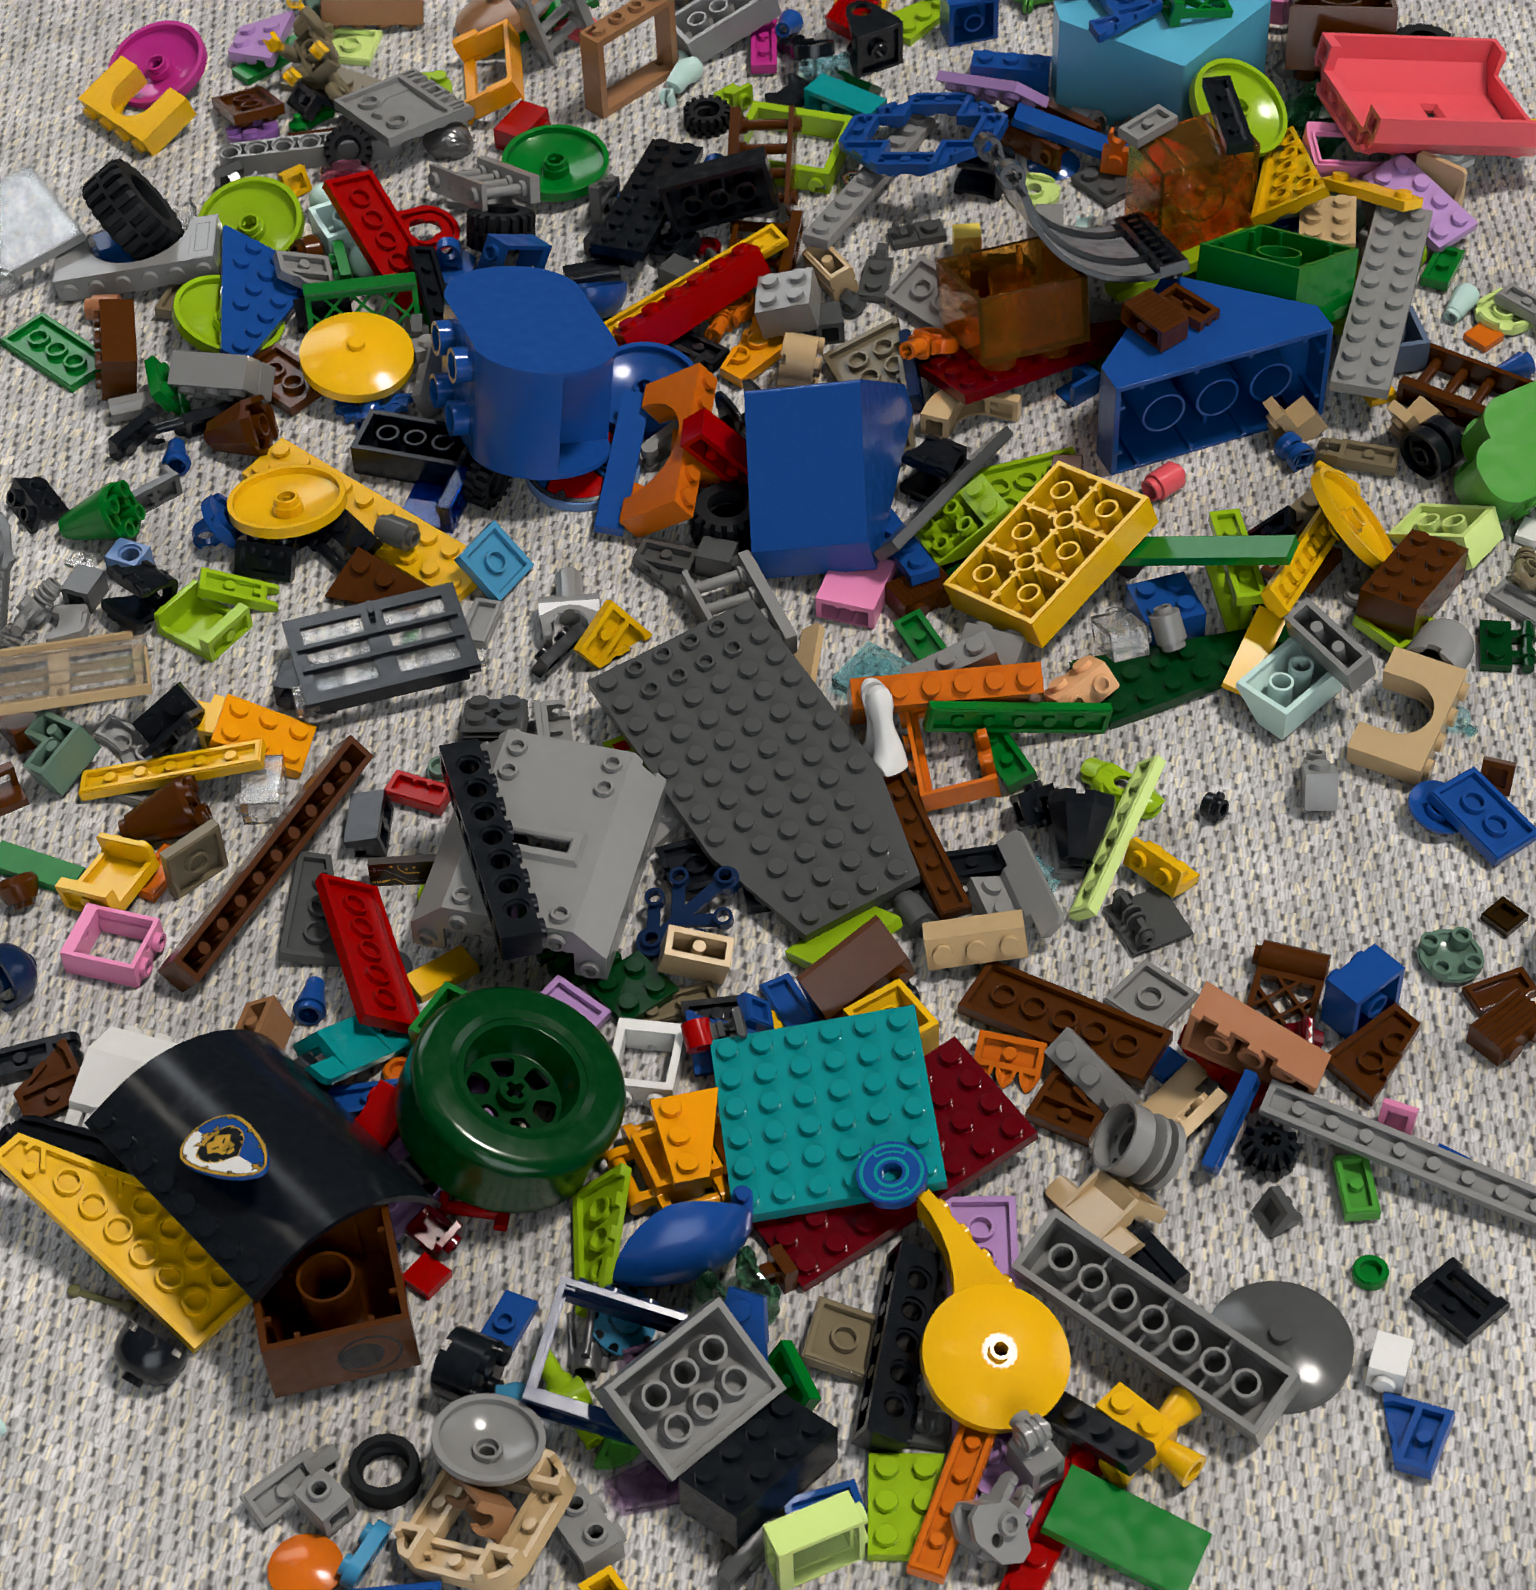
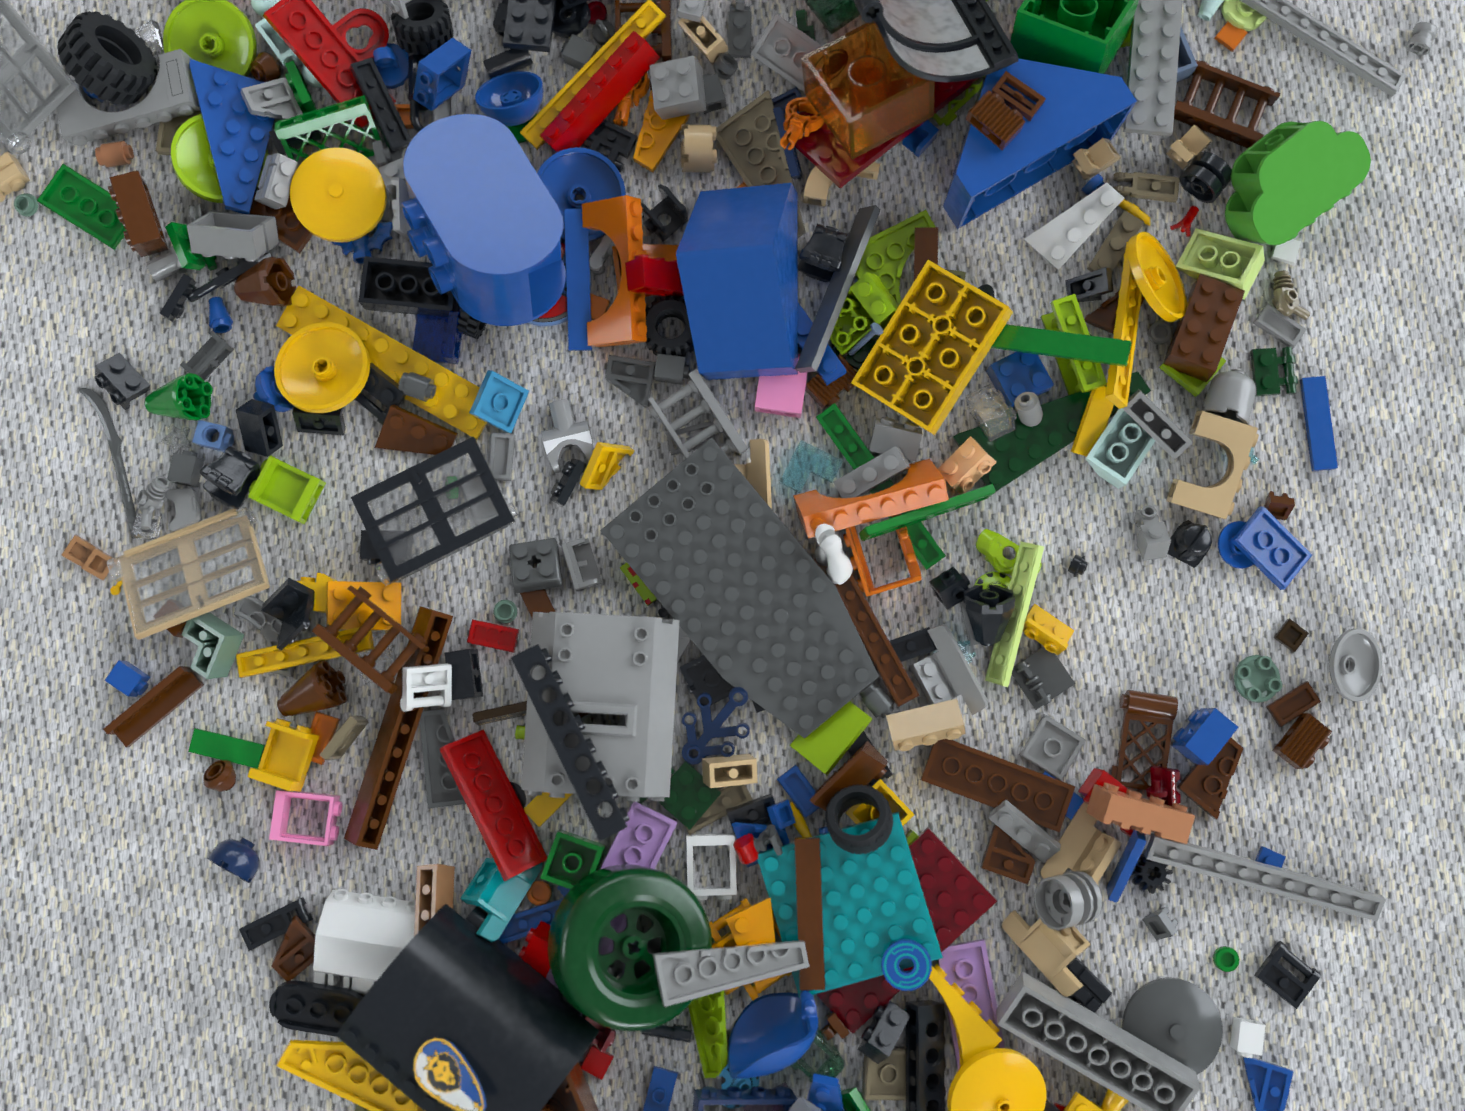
camera: 10 degrees left, 35 degrees up
(190, 547) = (259, 427): none -> black brick
(235, 589) = (304, 457): lime hinge -> none
(251, 768) = (349, 647): none -> reddish brown fence
(287, 336) = (276, 181): none -> light grey brick
(311, 1003) = (461, 843): blue cone -> none
(323, 803) = (426, 679): none -> white plate
(531, 1245) = (677, 1032): none -> black plate
(608, 1119) = (712, 970): none -> light grey wing
(769, 1103) = (810, 911): none -> reddish brown tile
(846, 1273) = (883, 1032): none -> black brick
(857, 993) = (852, 796): none -> black tyre
(969, 542) = (876, 329): none -> sand blue pin
(1011, 1056) = (963, 819): orange plate -> none
(1163, 481) = (1001, 236): coral brick -> none
(1260, 477) = (1070, 229): none -> white wing
(1356, 1188) = (1211, 896): bright green plate -> none
(1374, 803) = (1190, 543): none -> black piece
(1398, 1115) = (1234, 834): bright pink tile -> none
(1407, 494) = (1186, 222): none -> red bar
(1519, 364) = (1260, 71): blue cone -> none

